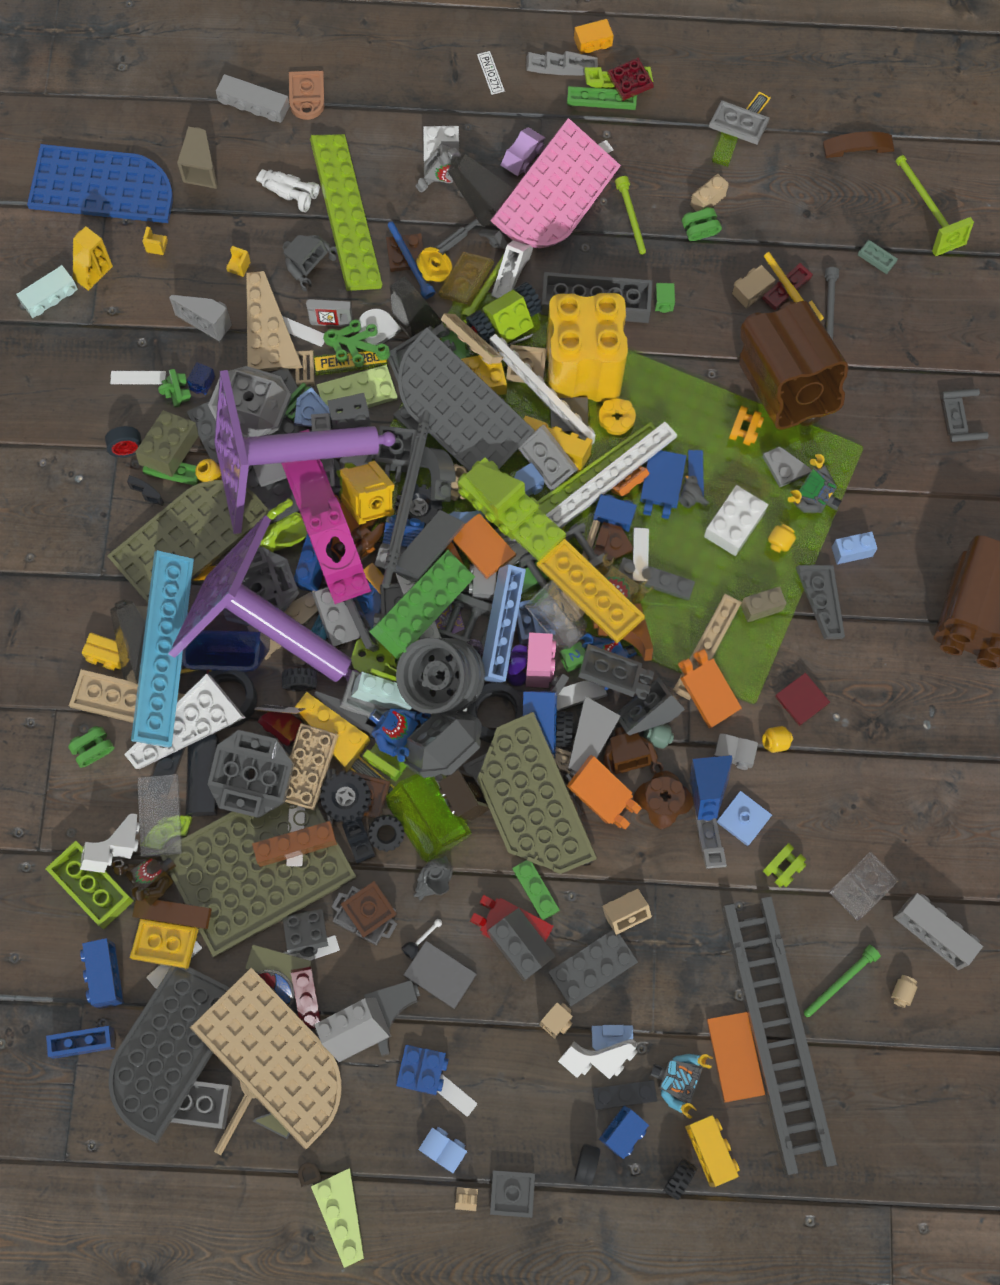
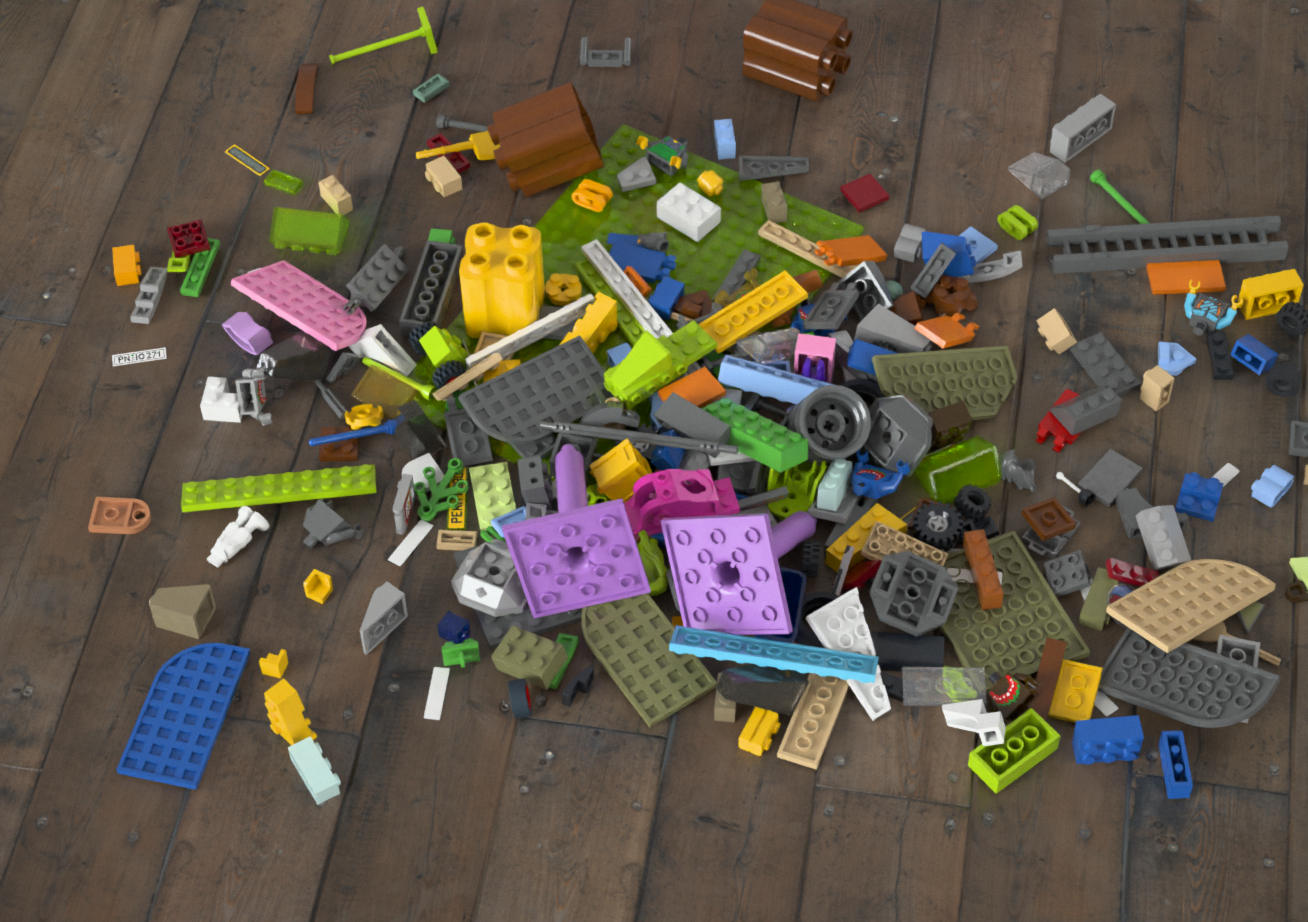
camera: 80 degrees left, 20 degrees down
(81, 743) = (859, 756): bright green brick -> none
(208, 470) = (565, 617): yellow head -> none
(252, 98) = (113, 561): light grey brick -> none
(267, 335) = (412, 568): tan wing -> none
(384, 762) = (901, 500): lime panel -> none
(535, 889) = (1030, 400): bright green plate -> none
(548, 457) = (606, 333): light grey tile -> none
(600, 245) = (376, 279): none -> dark grey plate
(607, 1060) = (1190, 354): white arch -> none
(622, 184) = (307, 261): lime piece -> none
(640, 552) = (709, 284): white sticker -> none
(659, 178) = (308, 230): none -> clear neon green windscreen
(679, 771) = (933, 270): none -> dark grey plate
(701, 224) = (360, 213): bright green brick -> none
(739, 122) = (258, 166): light grey tile -> none
(777, 739) = (901, 213): yellow head -> none
(904, 991) = (1131, 160): tan brick -> none

